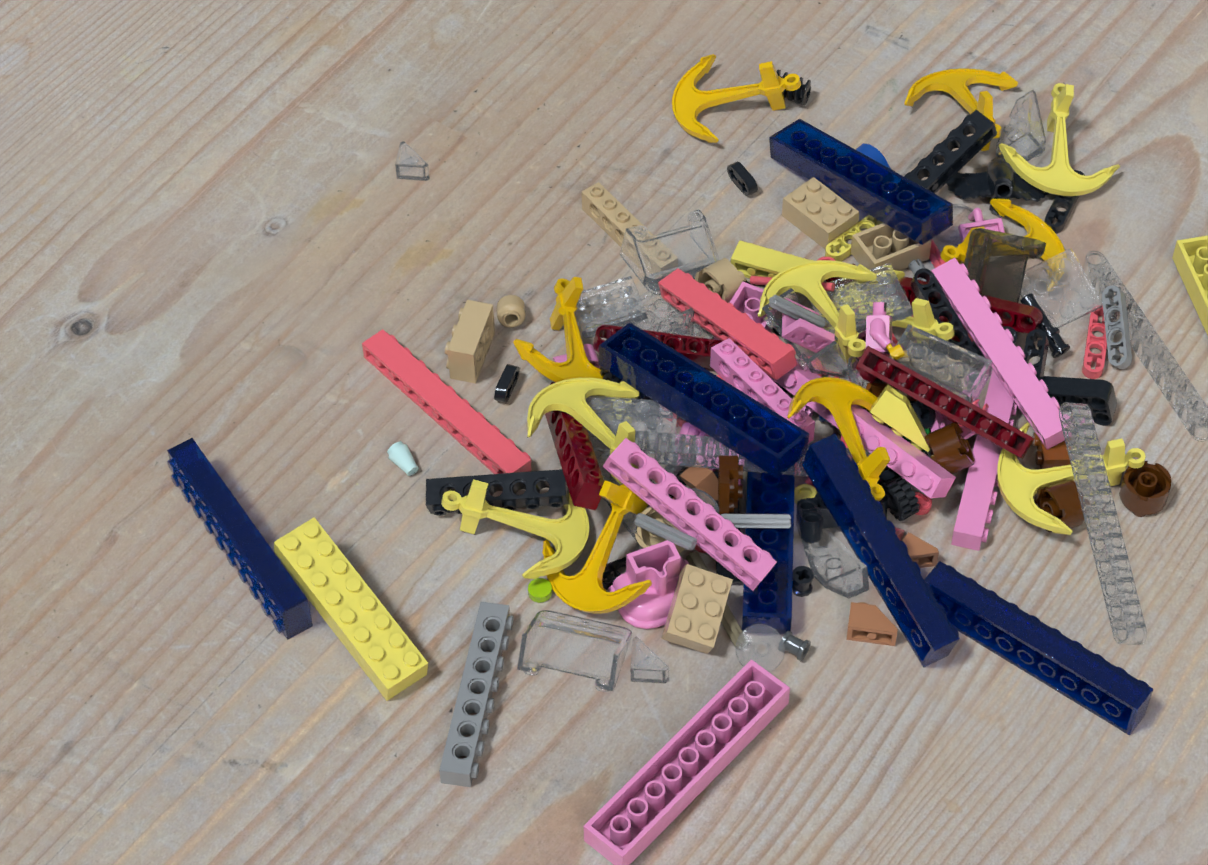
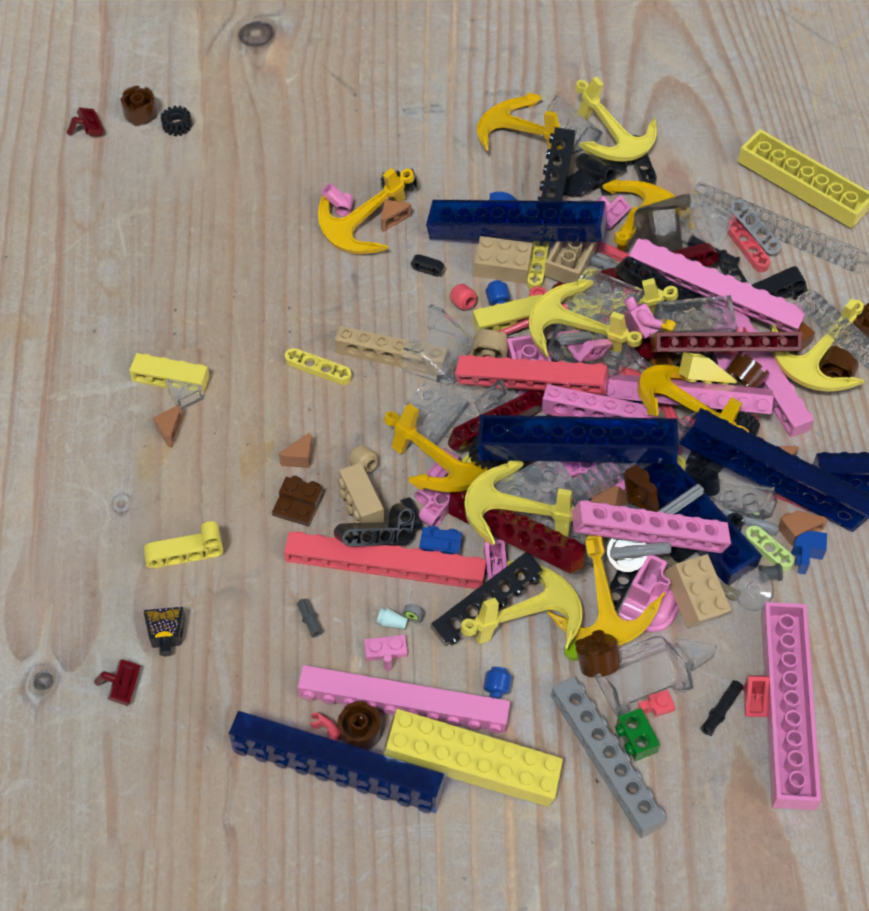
camera: 40 degrees left, 5 degrees up
(136, 364) = (122, 681): none -> dark red plate
(210, 345) = (165, 628): none -> black torso
(266, 513) = (323, 721): none -> coral piece
(283, 516) = (359, 714): none -> reddish brown brick
(304, 298) = (185, 548): none -> light yellow beam
(336, 413) = (309, 618): none -> dark grey axle
(349, 530) = (388, 695): none -> bright pink brick
(373, 182) = (168, 424): none -> nougat slope
(375, 479) = (385, 649): none -> bright pink plate
(401, 126) = (156, 370): none -> light yellow brick
(421, 312) = (298, 500): none -> reddish brown plate
(426, 465) = (413, 613): none -> light grey tile
(441, 568) = (497, 682): none -> blue head
(453, 370) = (374, 530): none -> black beam
(460, 272) = (298, 453): none -> nougat slope
(508, 421) = (441, 540): none -> blue brick
(525, 391) = (432, 511): none -> bright pink piece
(525, 695) = (642, 733): none -> green brick
(544, 459) = (495, 557): none -> bright pink slope
(549, 601) = (598, 654): none -> reddish brown brick
(554, 209) = (316, 369): none -> light yellow beam
(569, 686) = (658, 703): none -> coral plate
(623, 727) = (718, 713): none -> black pin
(663, 732) = (756, 695): none -> coral slope
(714, 75) = (342, 201): none -> bright pink piece
(747, 225) = (463, 296): none -> coral head
(755, 114) = (394, 213): none -> nougat slope
(784, 239) = (497, 292): none -> blue head
(814, 634) = (768, 540): none -> yellowish green beam
(831, 598) = (768, 527): none -> light grey axle
(856, 645) = (807, 546): none -> blue brick

